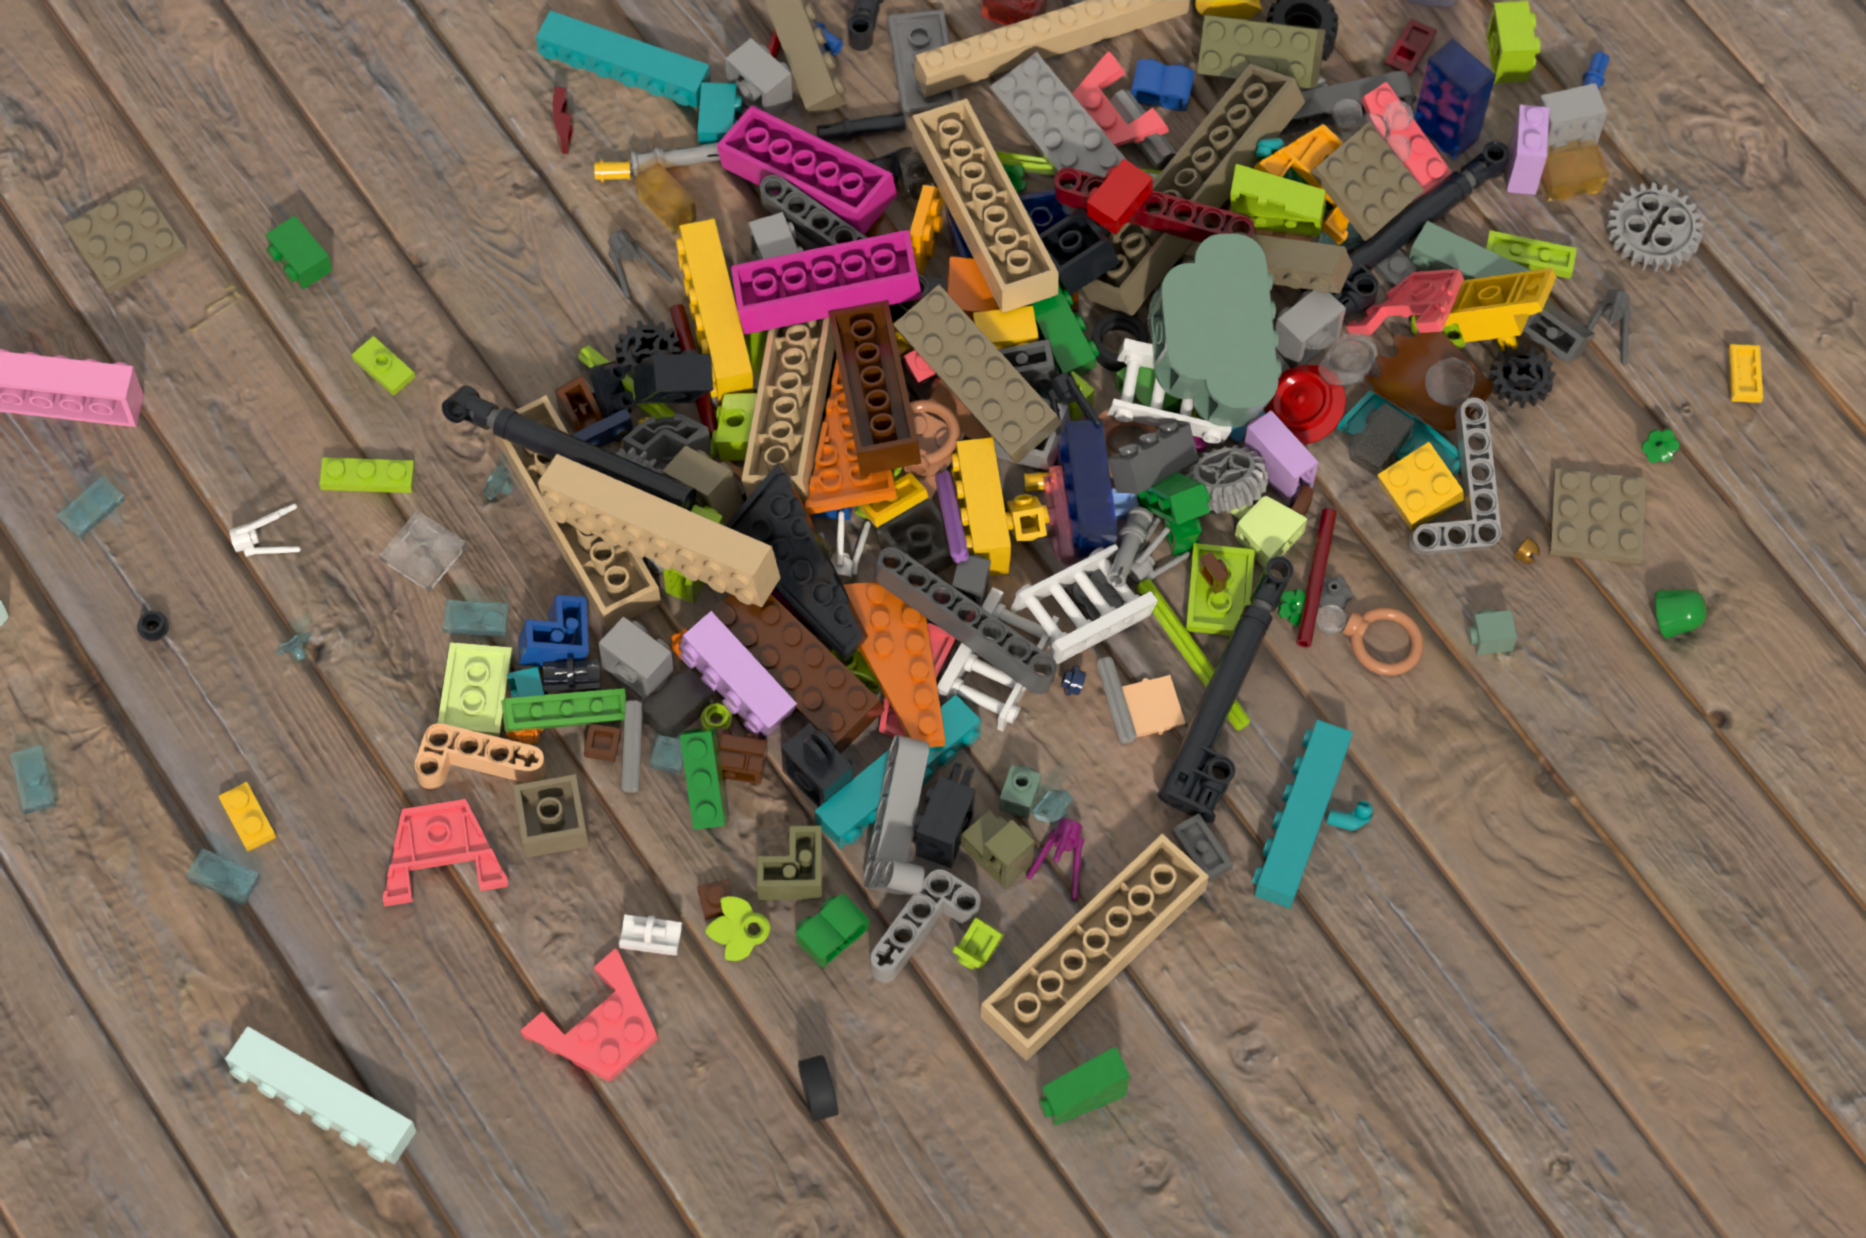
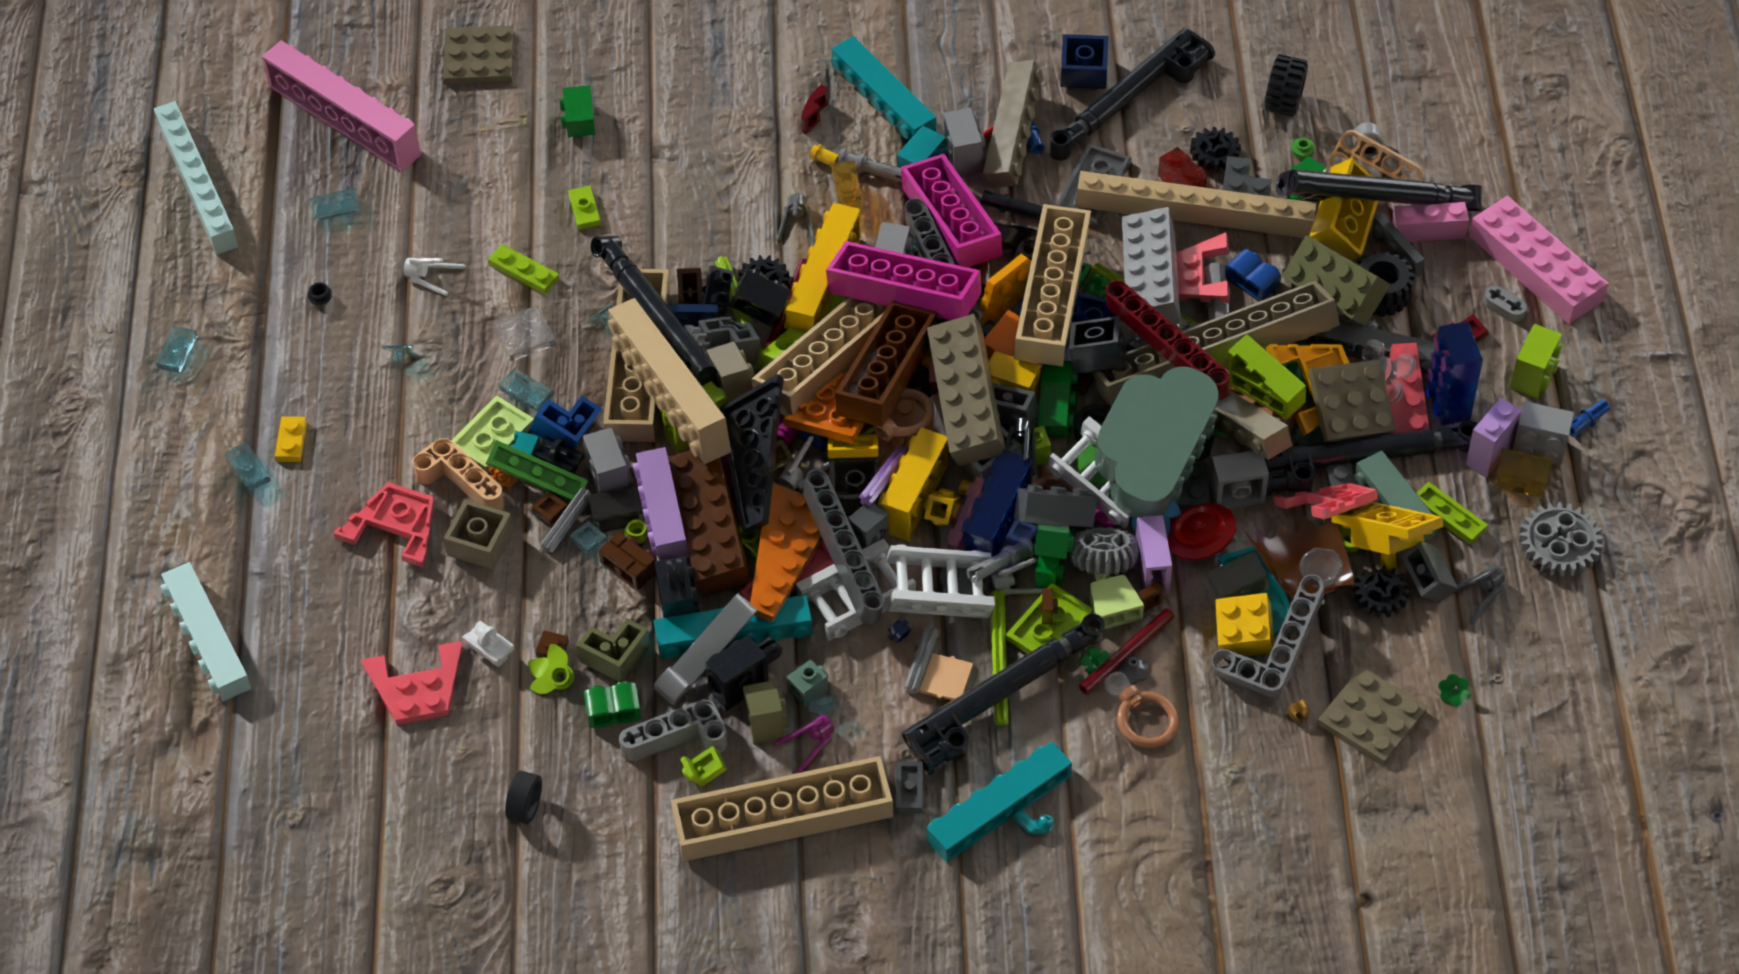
camera: 35 degrees right, 10 degrees down
(704, 778) = (593, 559): green brick -> none
(1085, 1088) = (706, 897): green slope -> none
(1119, 196) = (1141, 314): red brick -> none
(1269, 146) = (1286, 338): teal arm -> none
(1349, 359) = (1253, 516): clear piece -> none
(1492, 632) = (1230, 752): sand green brick -> none
(1679, 611) = (1384, 809): green hair -> none
(1745, 373) = (1560, 673): yellow plate -> none

